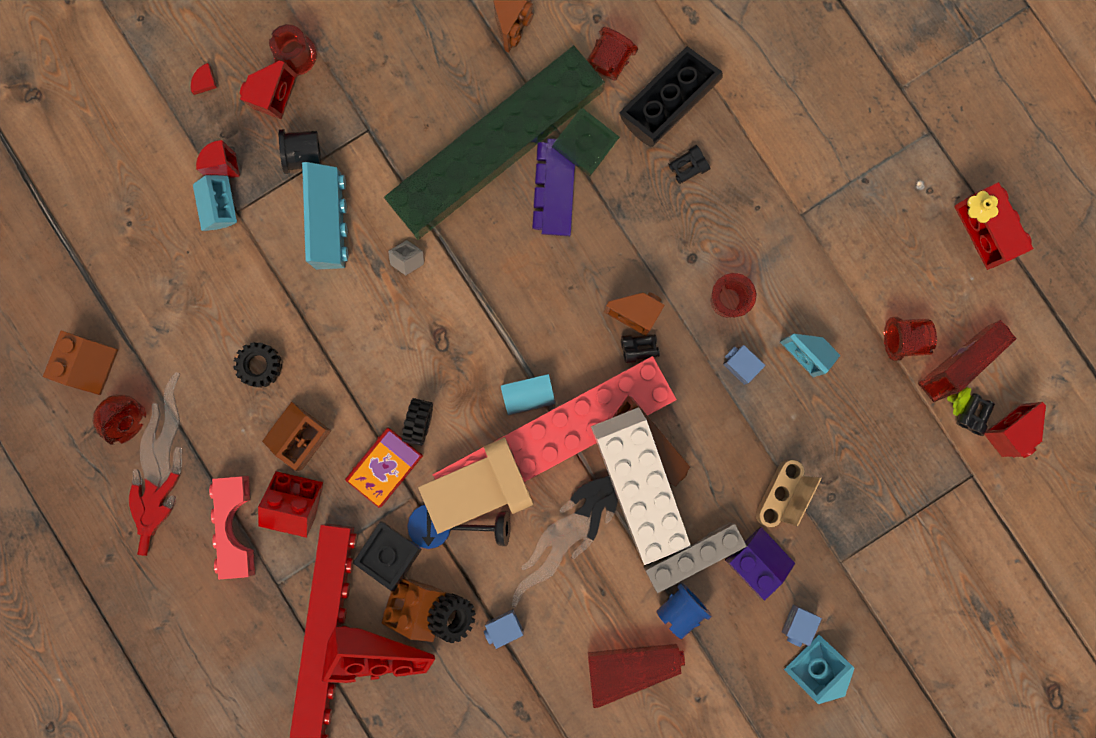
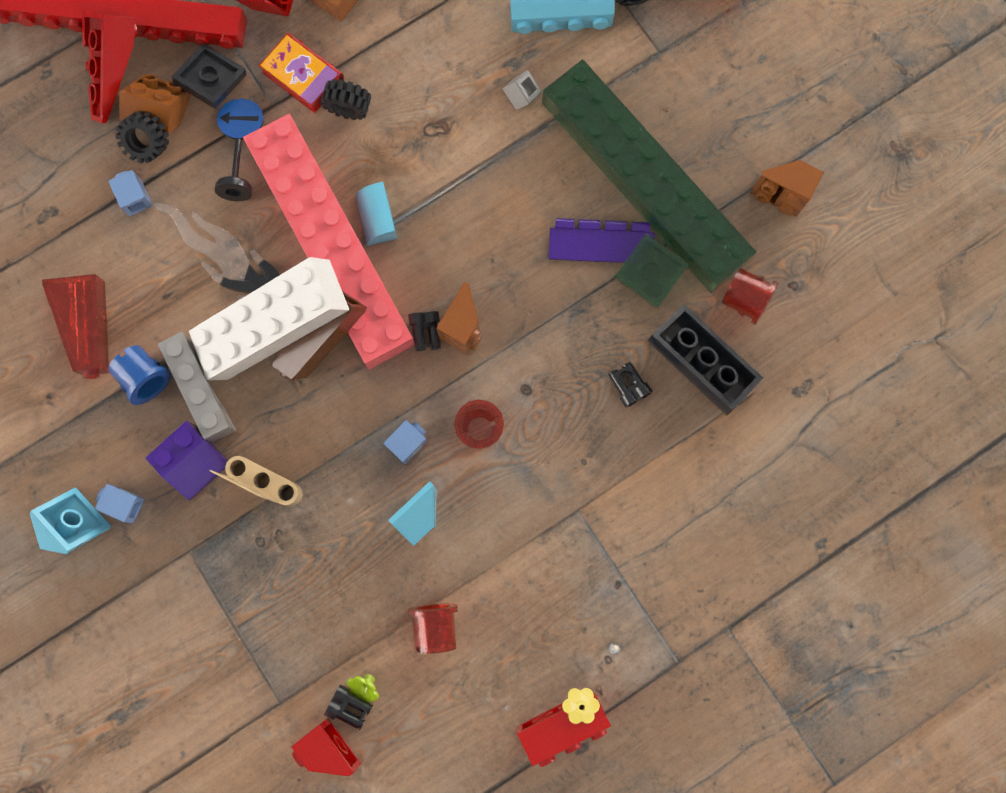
camera: 90 degrees right, 5 degrees down
(477, 489) = (272, 156): tan piece -> none
(967, 362) = (408, 697): clear red slope -> none

